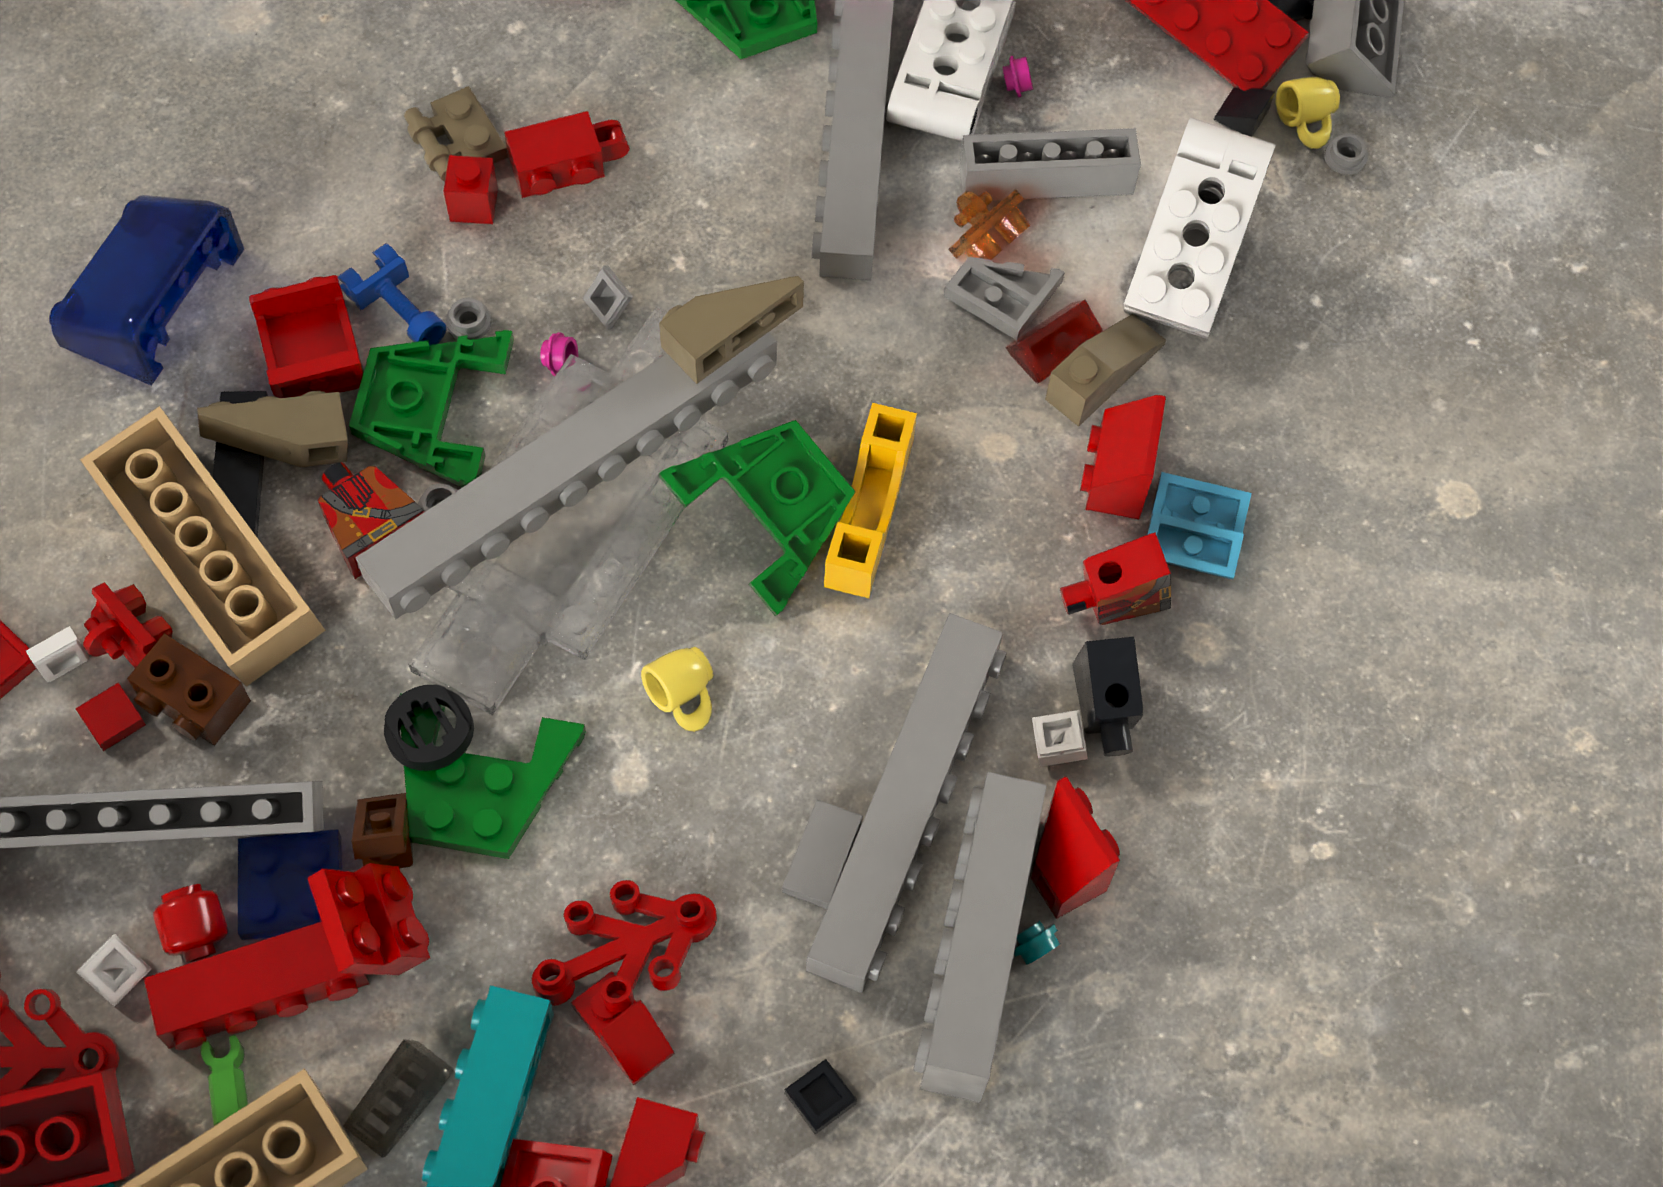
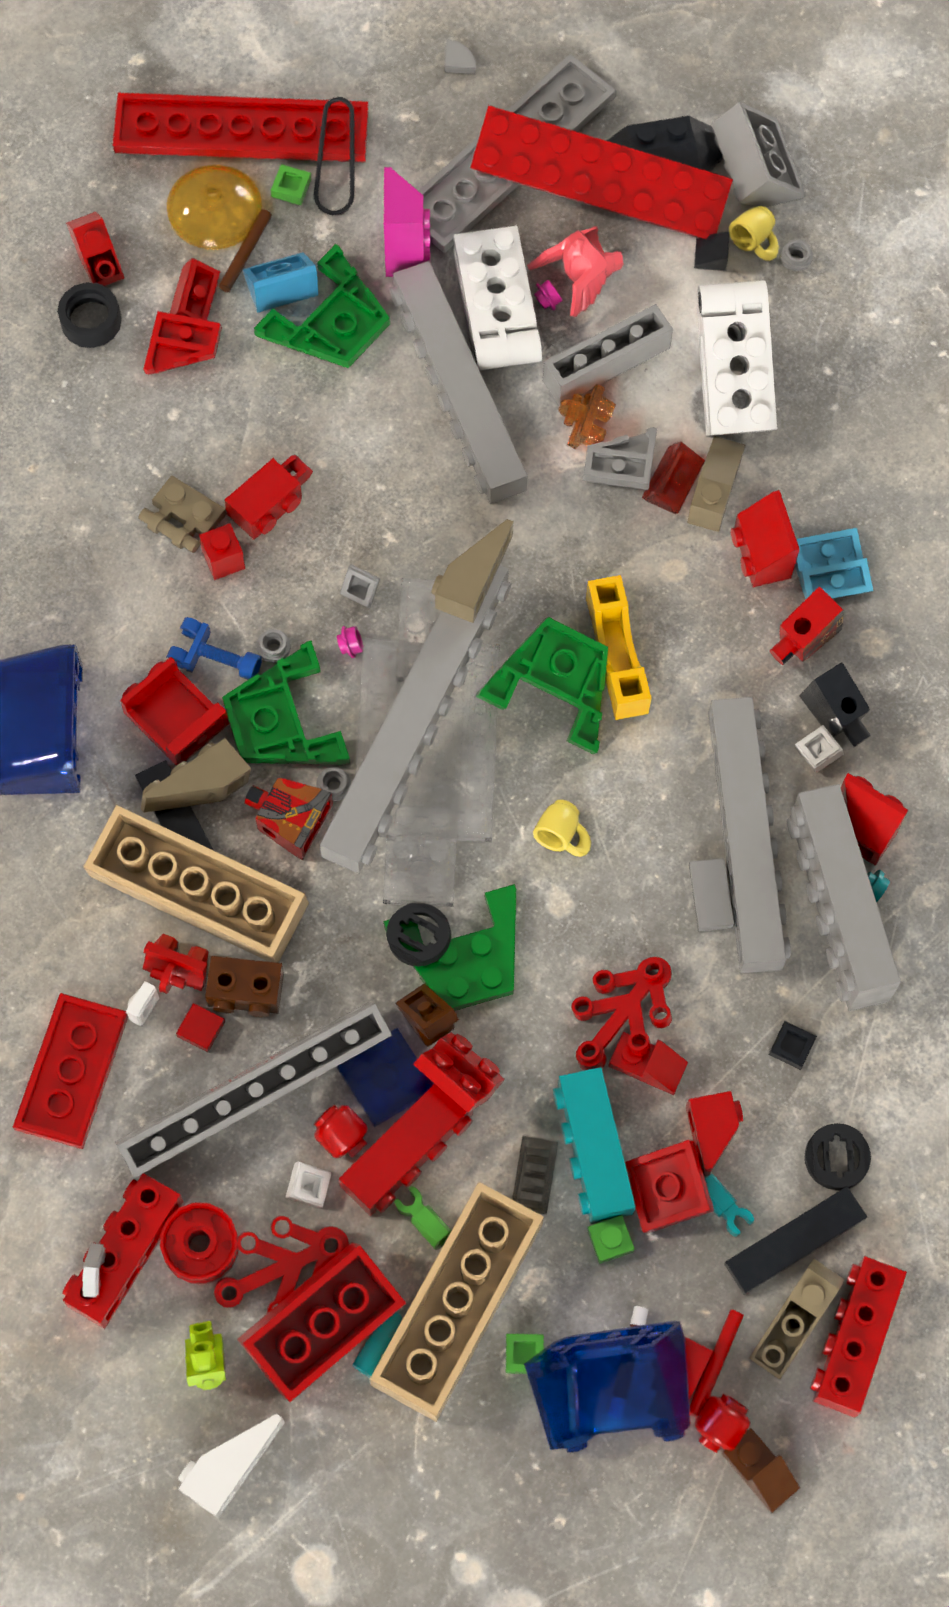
camera: 25 degrees left, 5 degrees up
(1079, 55) = (584, 264): none -> coral helmet

